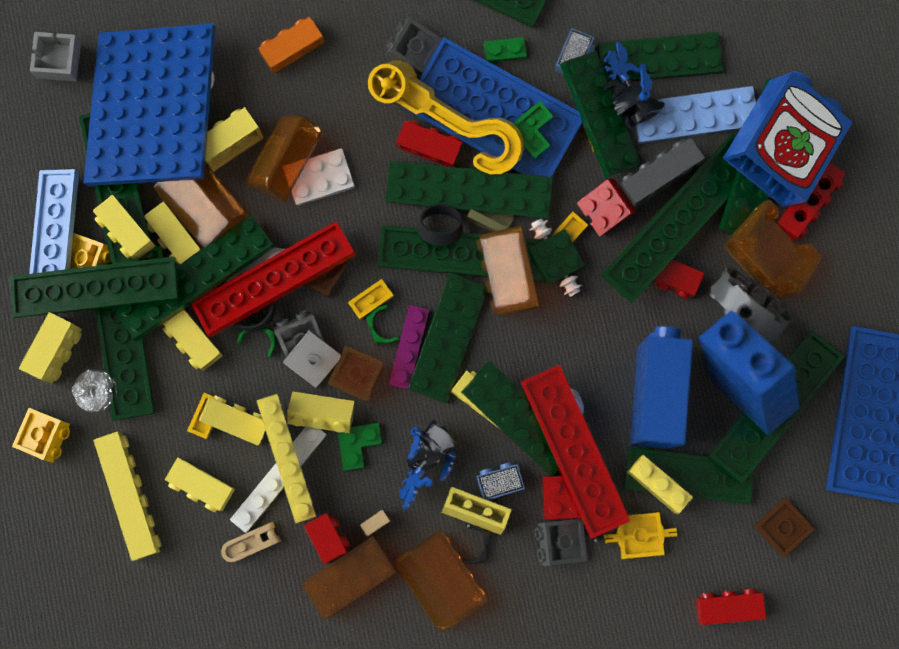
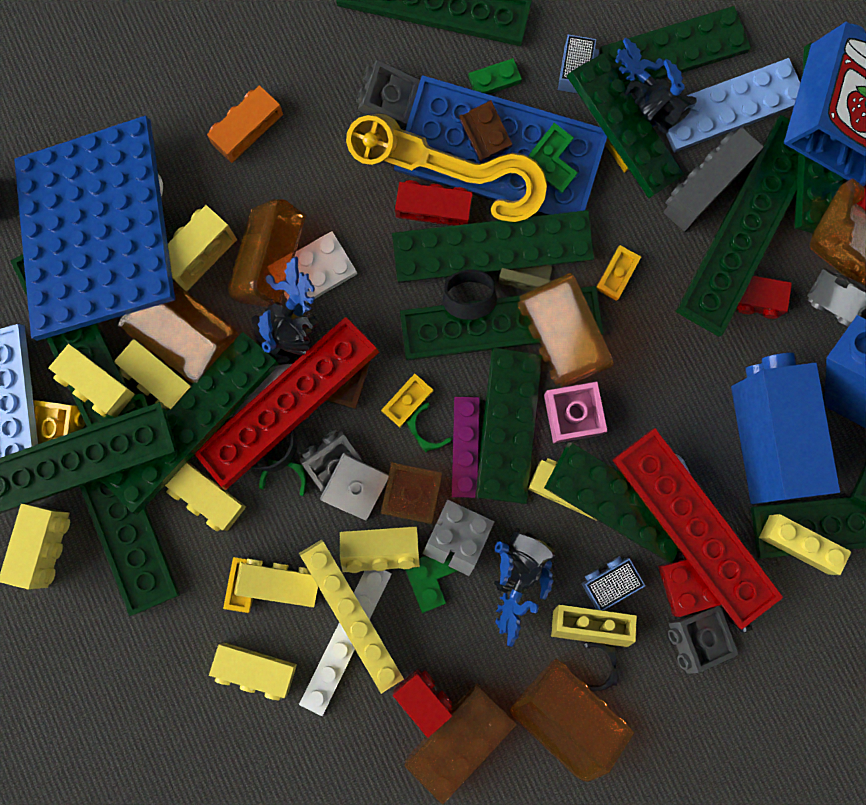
camera: 15 degrees left, 0 degrees up
(41, 435) = (47, 655): yellow plate -> none
(83, 387) = (86, 589): clear plate -> none
(127, 496) = (168, 705): light yellow brick -> none
(249, 543) = (329, 728): tan plate -> none
(285, 216) = (286, 324): none -> helmet
(375, 522) = (475, 668): tan piece -> none
(388, 414) = (461, 533): none -> light grey piece
(484, 94) = (485, 131): none -> reddish brown plate
(502, 339) = (575, 412): none -> bright pink brick
(556, 257) = (614, 302): dark green plate -> none
(606, 207) = (658, 230): piece -> none
(641, 536) = (797, 612): yellow plate -> none

